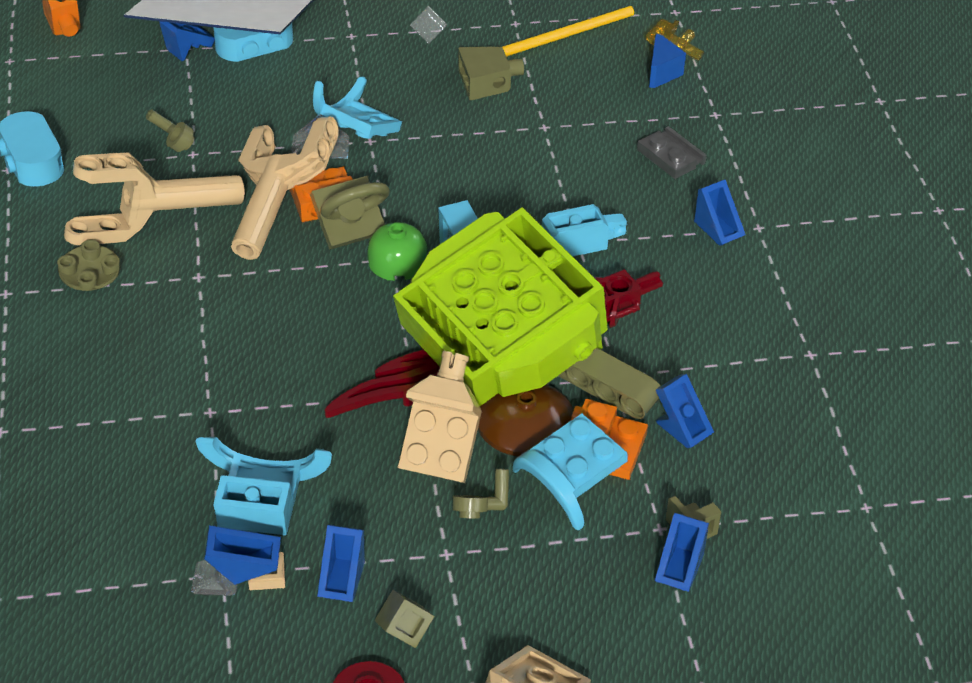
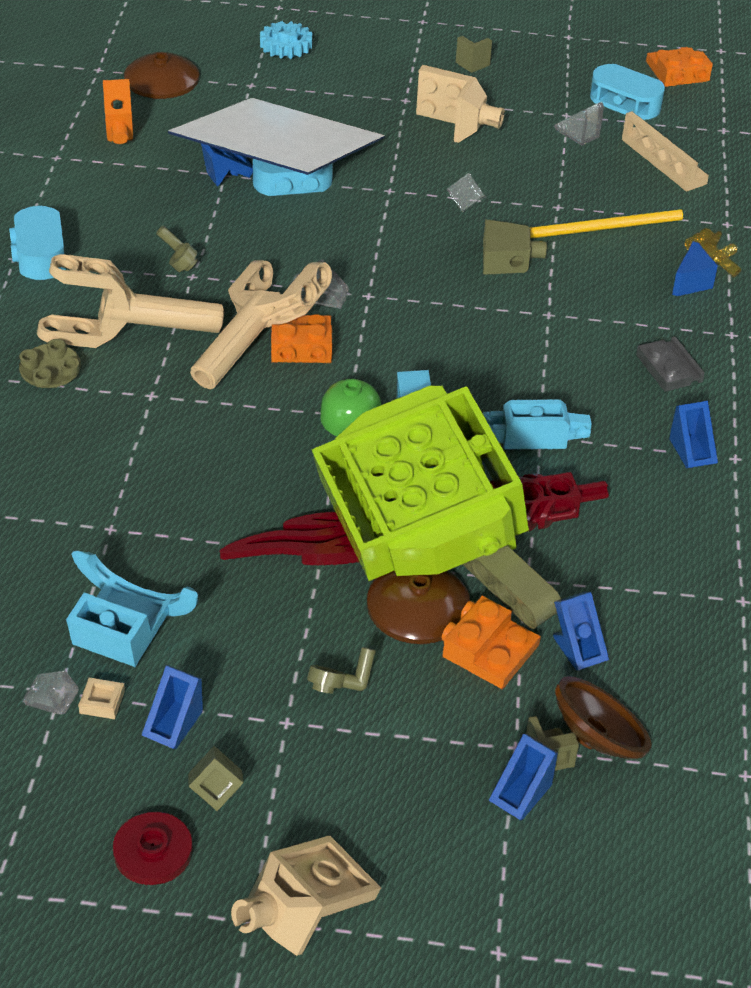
camera: 15 degrees right, 0 degrees up
(241, 553) = (76, 675): blue slope -> none
(349, 210) = (315, 359): olive tile -> none
(353, 114) = (359, 266): medium azure piece -> none
(442, 423) = (322, 588): tan plate -> none
(572, 463) = (441, 658): medium azure piece -> none
(731, 487) = (601, 720): none -> reddish brown dish

